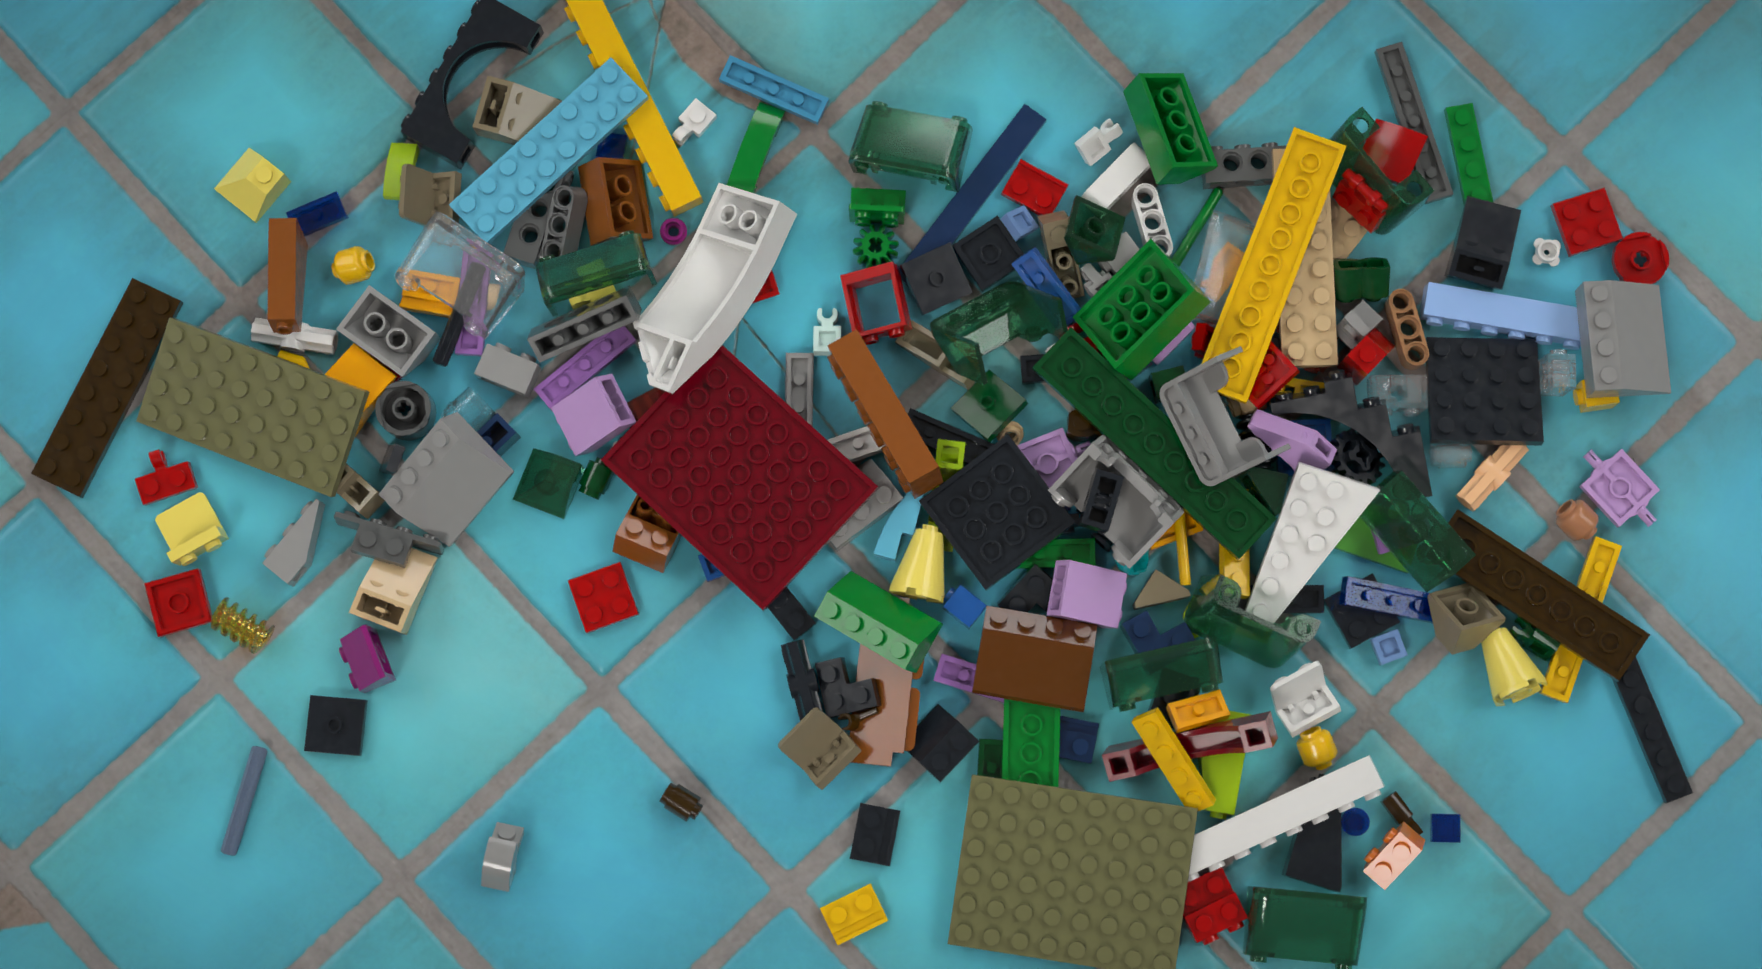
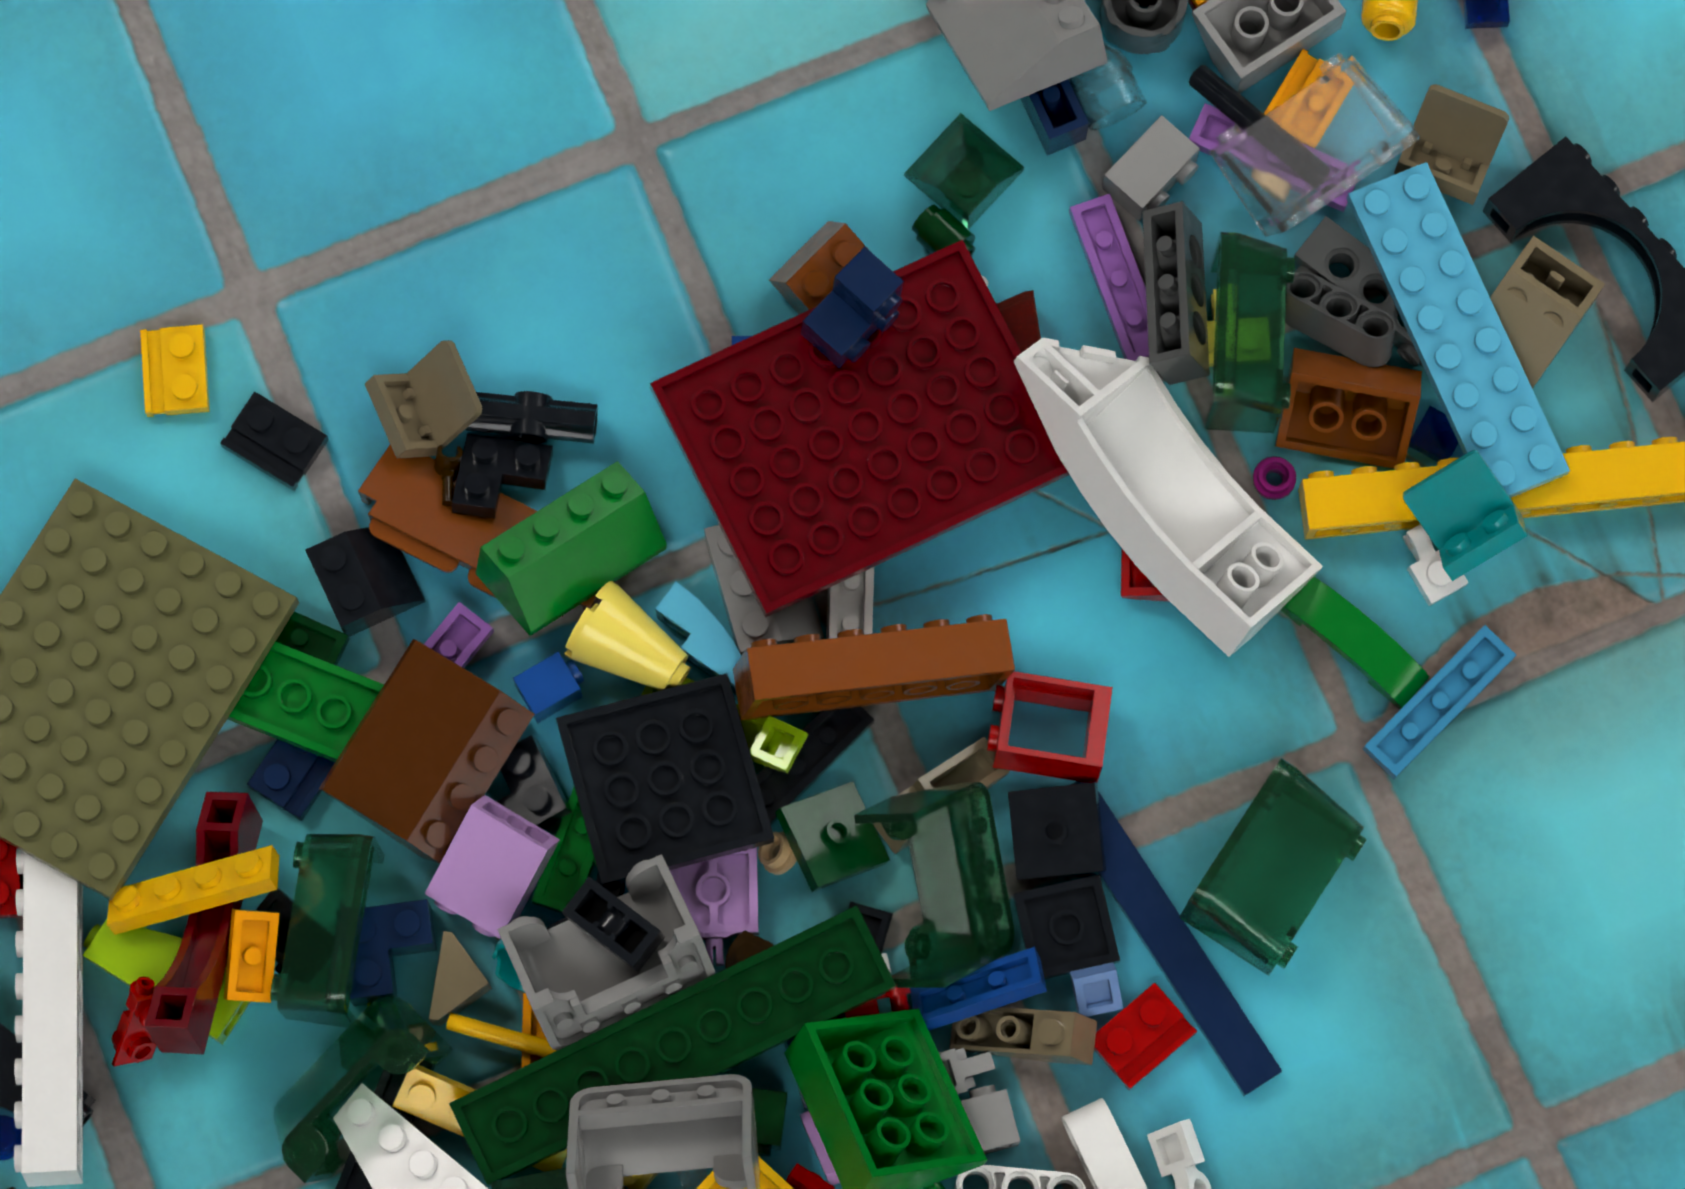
camera: 105 degrees right, 5 degrees down
(398, 156) = (1527, 128): lime slope -> none
(593, 415) = (1035, 259): lavender brick -> none
(603, 597) = (767, 188): red plate -> none
(662, 104) = (1466, 513): none -> teal bracket
(673, 503) = (861, 302): none -> dark blue brick
(681, 802) = (430, 188): dark brown brick -> none
(791, 614) = (638, 439): black hinge -> none
(800, 384) = (964, 573): light grey tile -> none
(826, 333) = (1031, 641): light aqua plate -> none
(864, 249) = (1144, 747): green gear -> none
(877, 206) = (1204, 789): green bracket -> none
(1093, 232) = (1037, 1086): clear green slope -> none
(1260, 766) = (131, 1037): none -> red hinge
(1303, 699) = (208, 1129): white bracket -> none
(1316, 748) = (131, 1121): yellow head -> none

